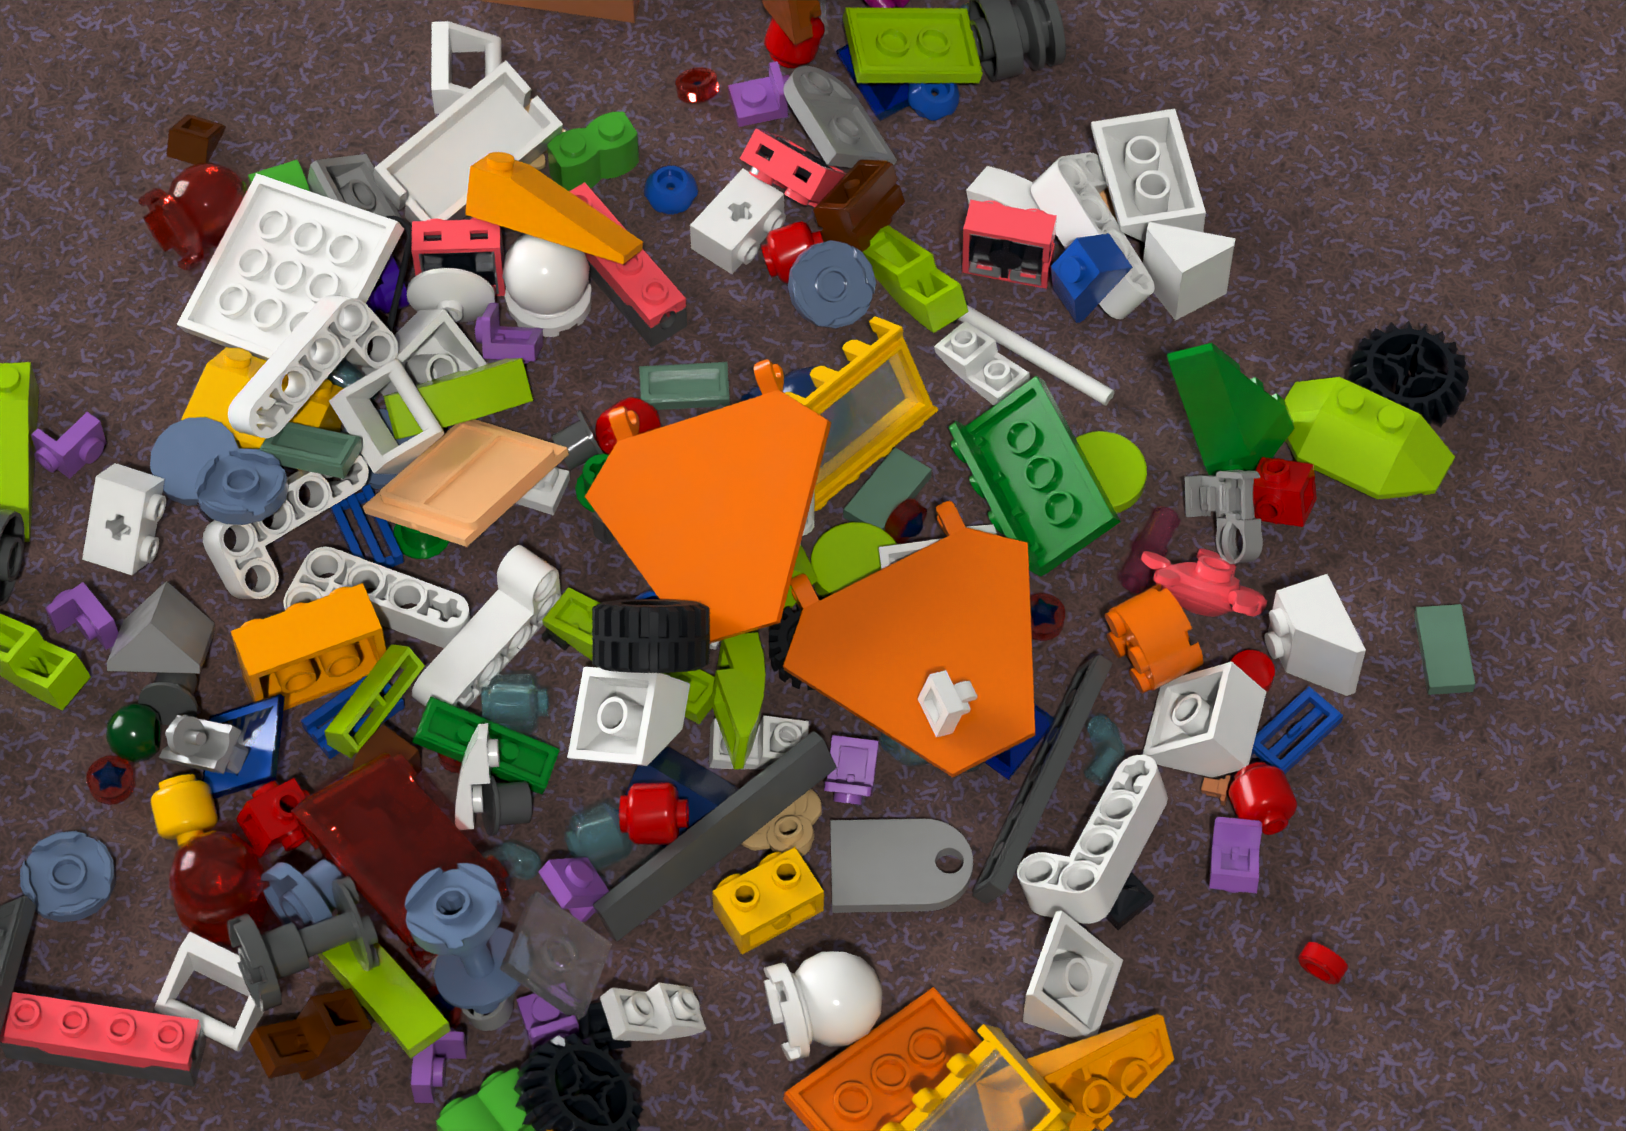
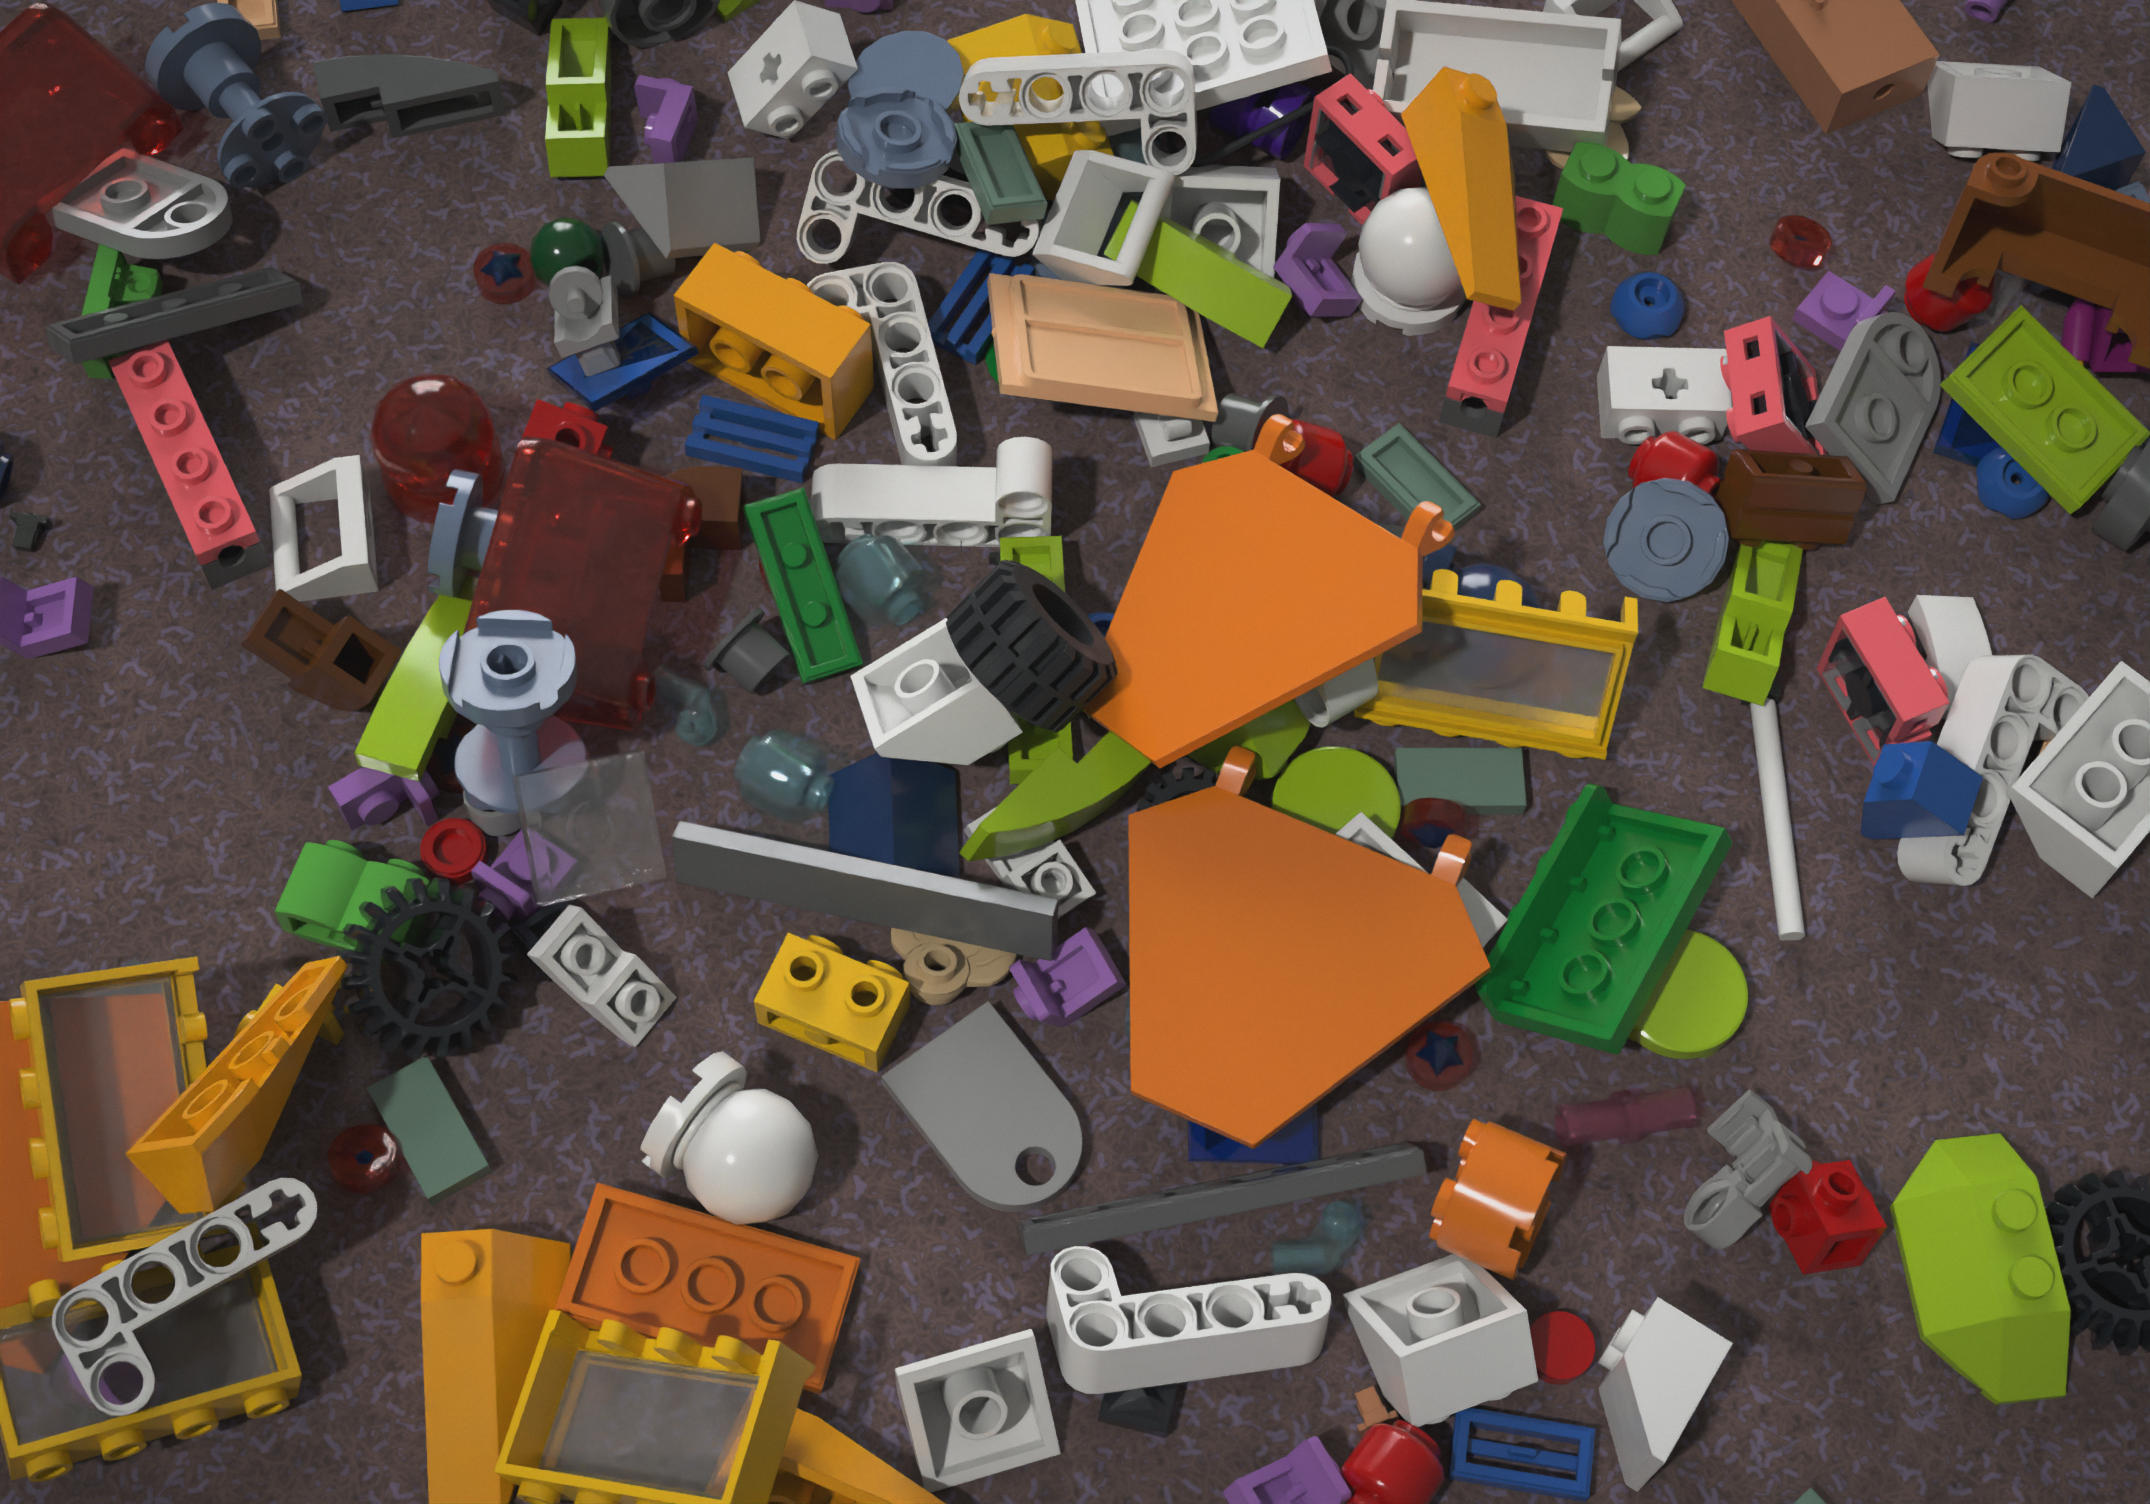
camera: 50 degrees right, 5 degrees up
(68, 892) = (374, 327): sand blue tile -> none
(183, 808) = (511, 358): yellow head -> none
(287, 950) = (353, 540): dark grey piece -> none
(368, 696) = (766, 429): lime piece -> none
(455, 290) = (1312, 179): white dish -> none
(475, 769) = (751, 589): white slope -> none
(497, 1050) = (453, 849): none -> red tile
(574, 885) = (692, 784): medium lavender bracket -> none
(653, 813) = (830, 804): red head -> none
(945, 702) = (1204, 1018): white tile -> none
(979, 364) = (1712, 765): white slope -> none
(1187, 266) = (2031, 901): white slope -> none
(1205, 586) = (1622, 1212): coral animal -> none
(1227, 411) = (1850, 1079): green wedge -> none

